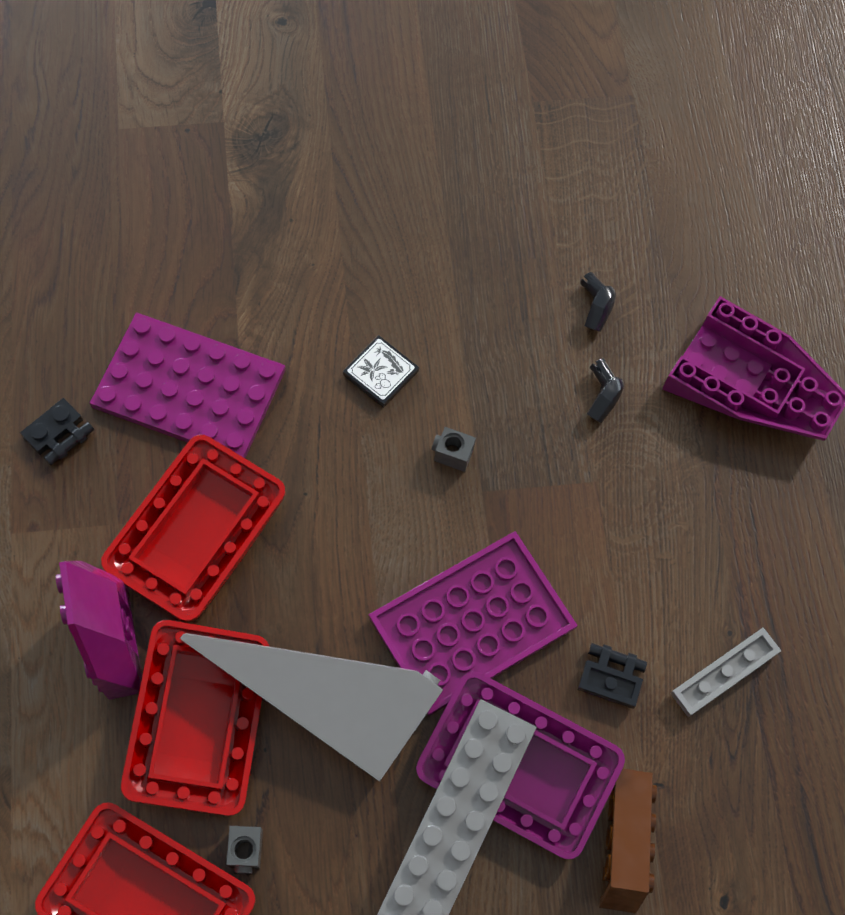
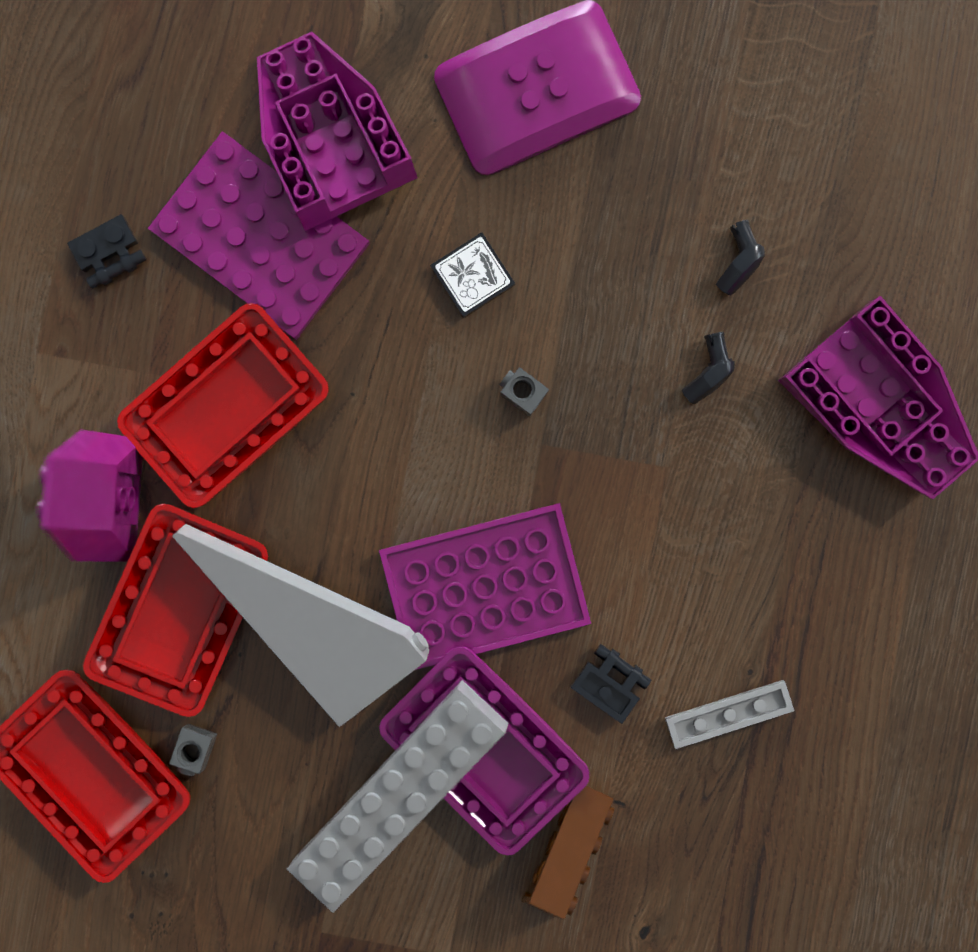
camera: 20 degrees right, 20 degrees up
(229, 289) = (326, 131): none -> magenta wedge
(388, 221) = (537, 87): none -> magenta wedge

